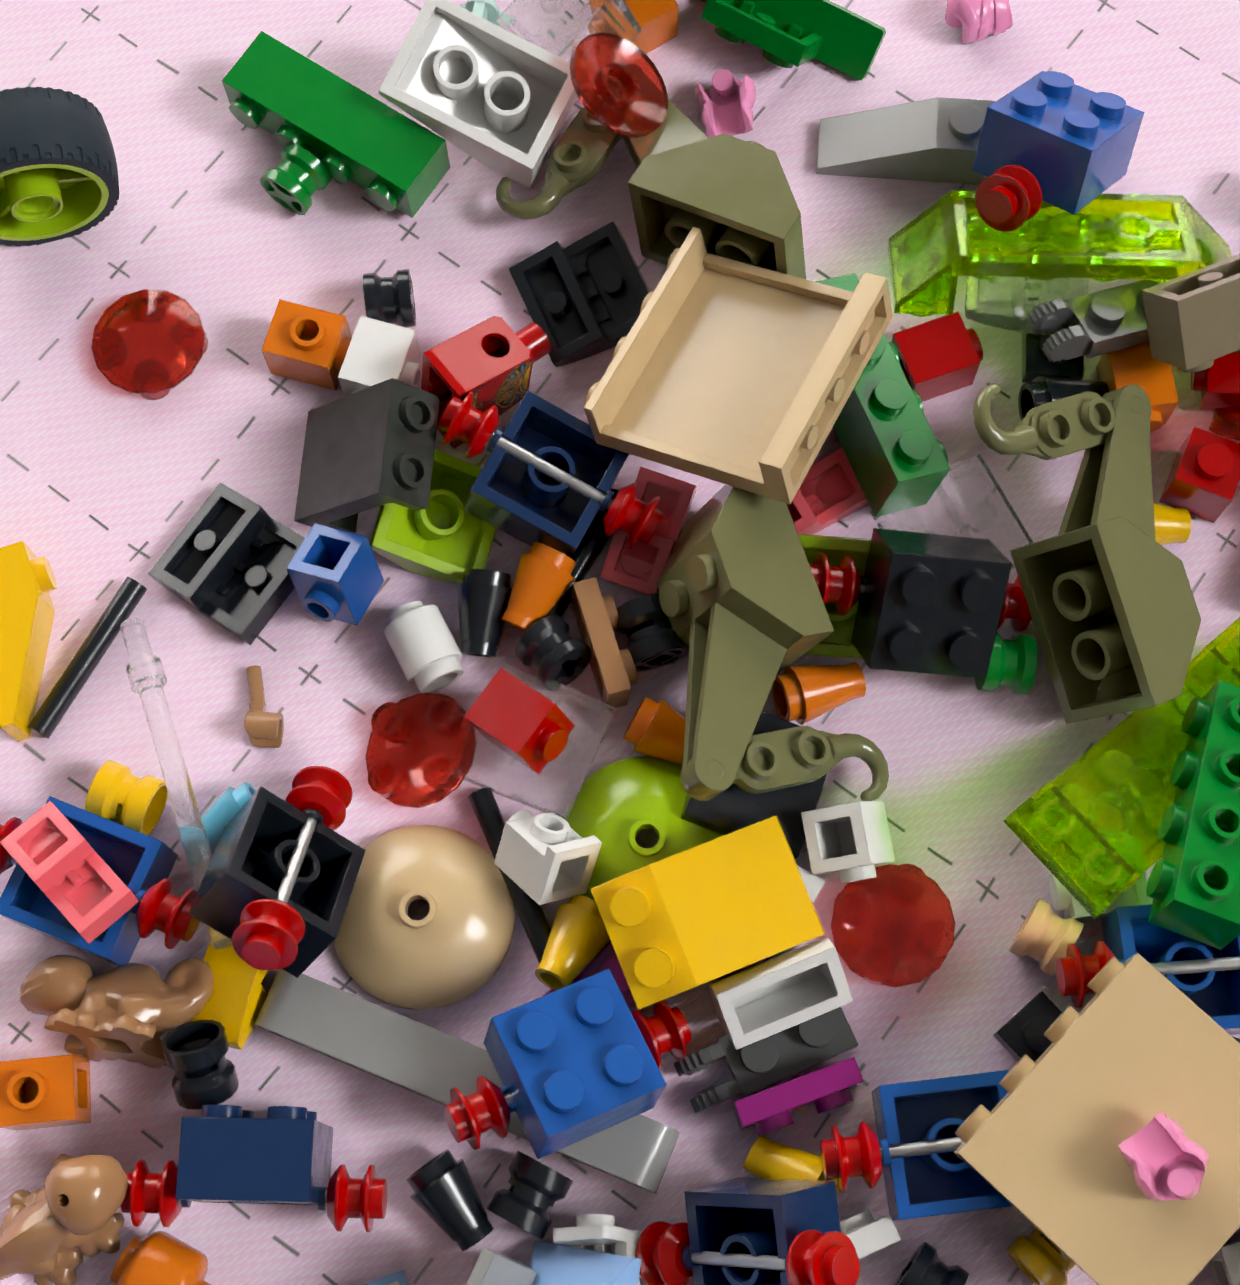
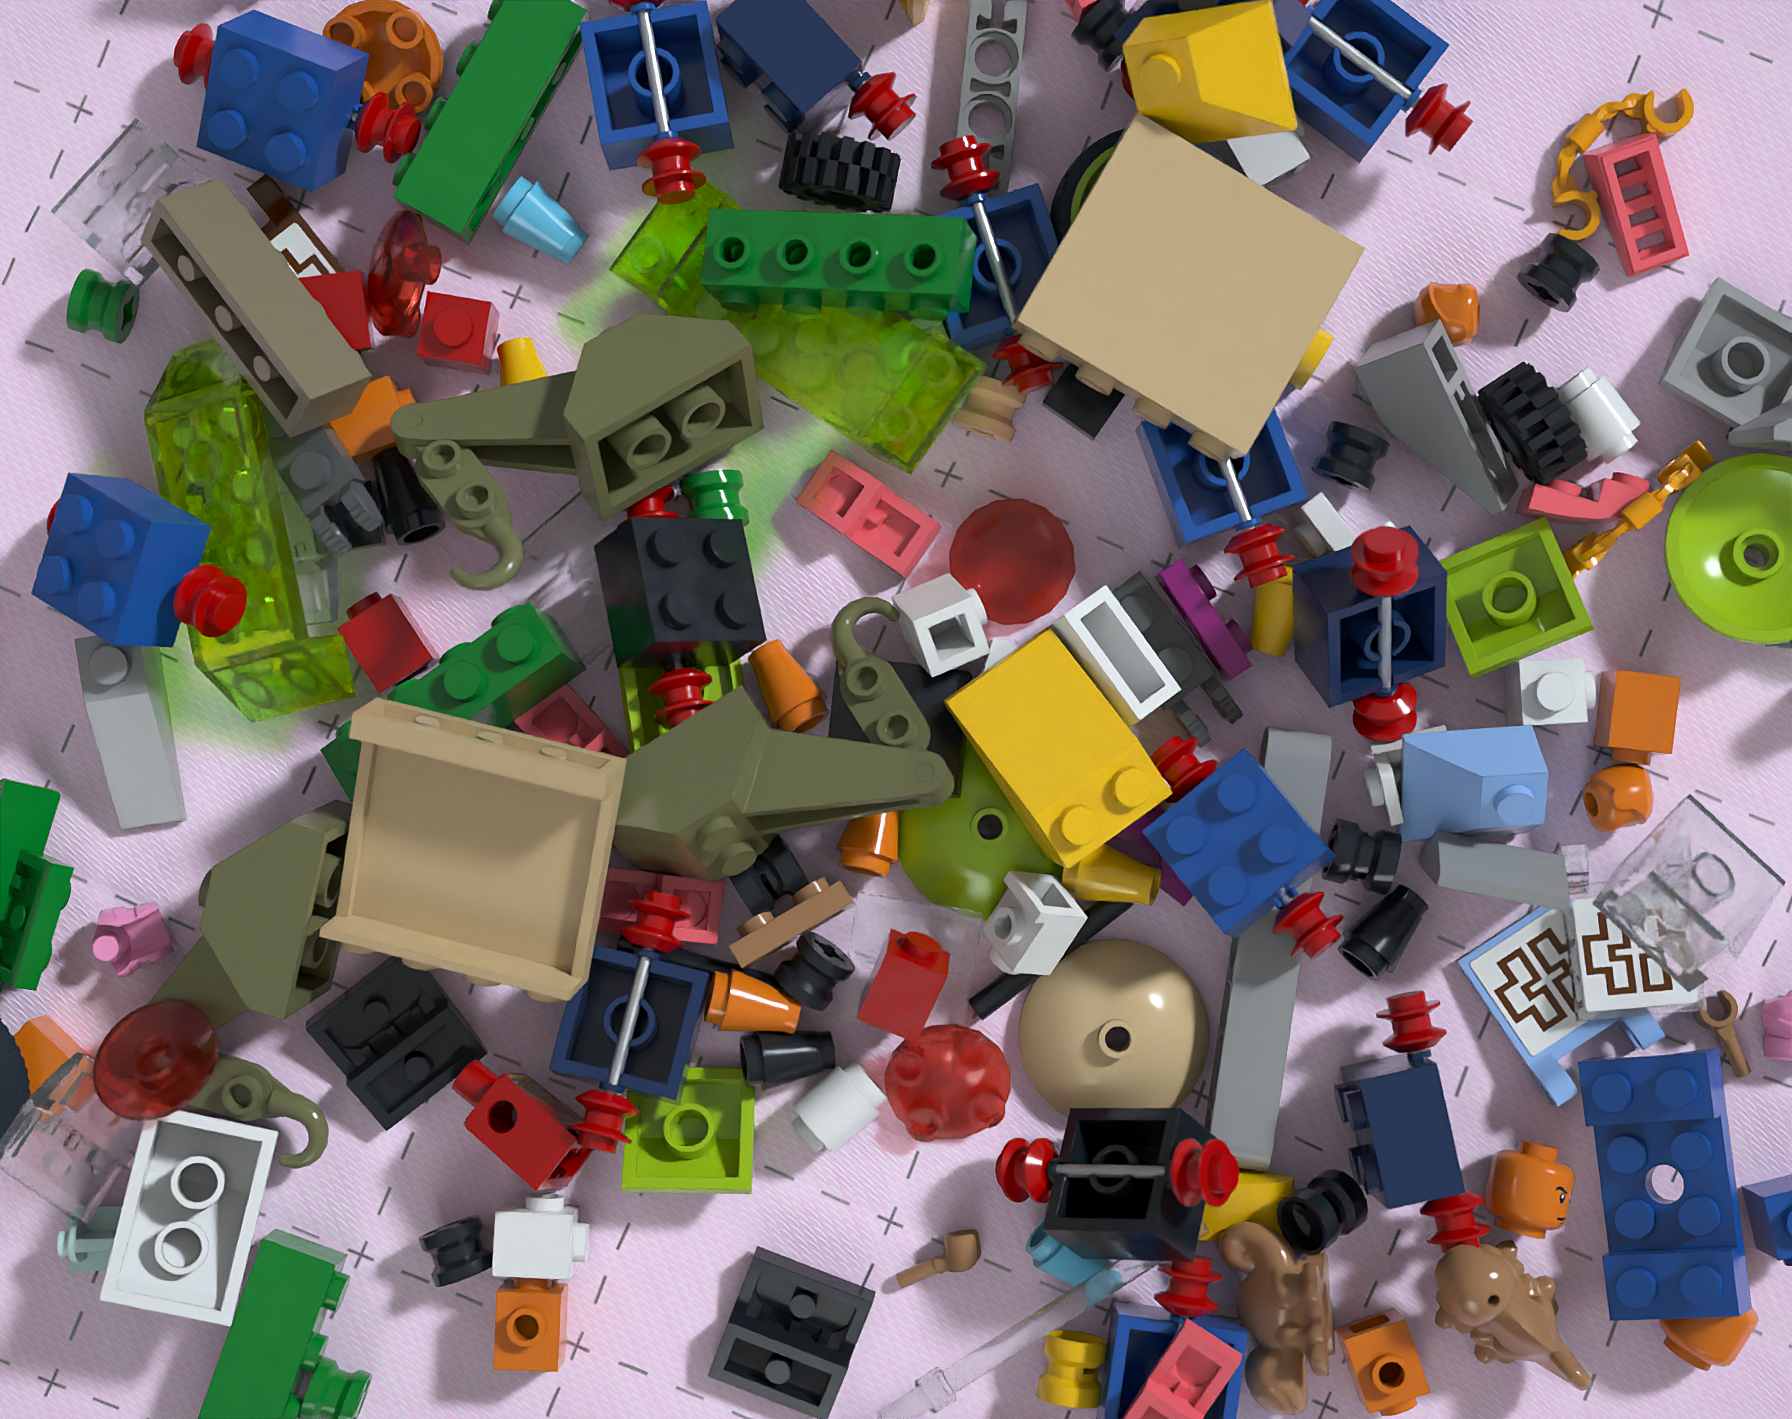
camera: 105 degrees left, 15 degrees up
(335, 574) = (789, 1220): blue brick -> none
(367, 454) = (657, 1221): pearl dark grey panel -> none
(965, 803) = (868, 514): none -> coral slope
(1165, 1160) = (1213, 261): bright pink arm -> none

